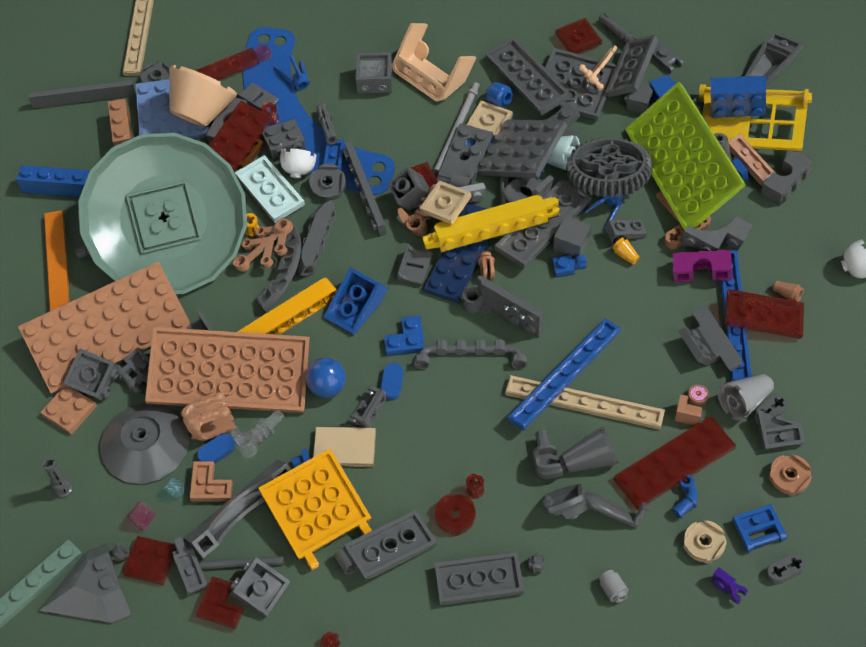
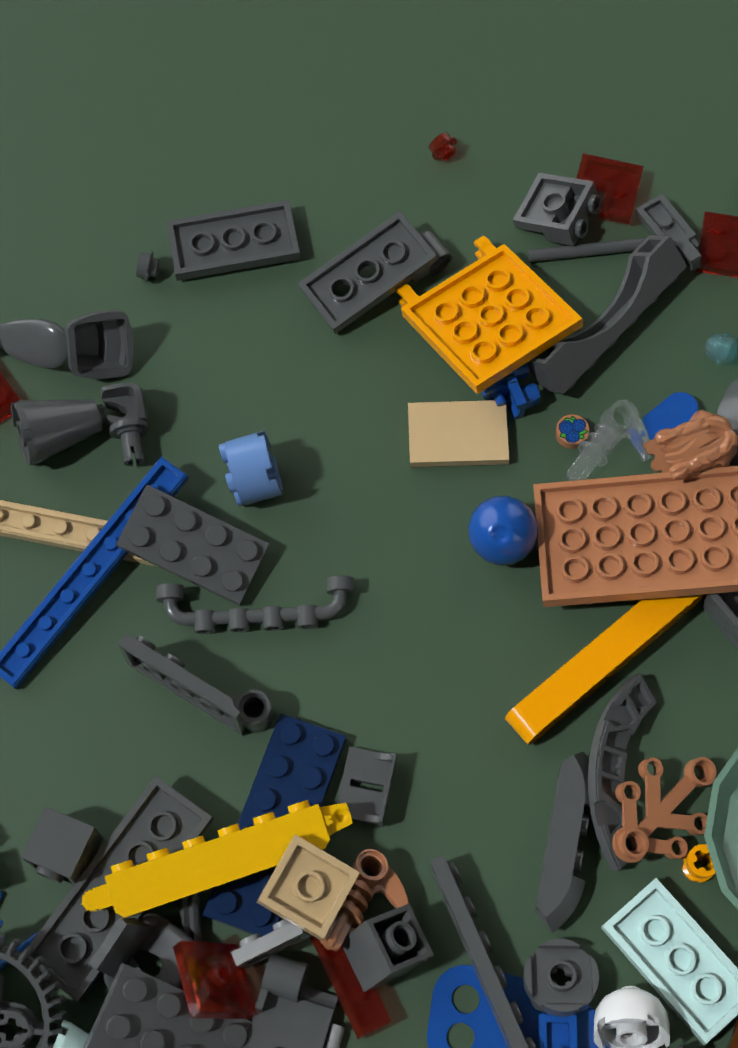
camera: 175 degrees right, 10 degrees up
(205, 488) = (672, 351): nougat plate -> none
(275, 444) = (571, 431): none -> tile
(355, 301) = (469, 701): blue slope -> none
(368, 408) = (426, 496): dark grey hinge -> none
(392, 380) = (389, 552): blue tile -> none
(410, 341) = (362, 633): blue plate -> none
(455, 503) = (275, 348): clear red plate -> none
(469, 419) = (252, 468): none -> medium blue brick
(479, 489) = (240, 371): clear red bush -> none
(486, 264) = (229, 786): nougat arm -> none
(495, 178) = (213, 981): none -> clear red plate
(505, 381) = (192, 544): none -> dark grey plate
(565, 264) = (81, 801): blue plate -> none
(613, 586) = (34, 237): light grey brick -> none

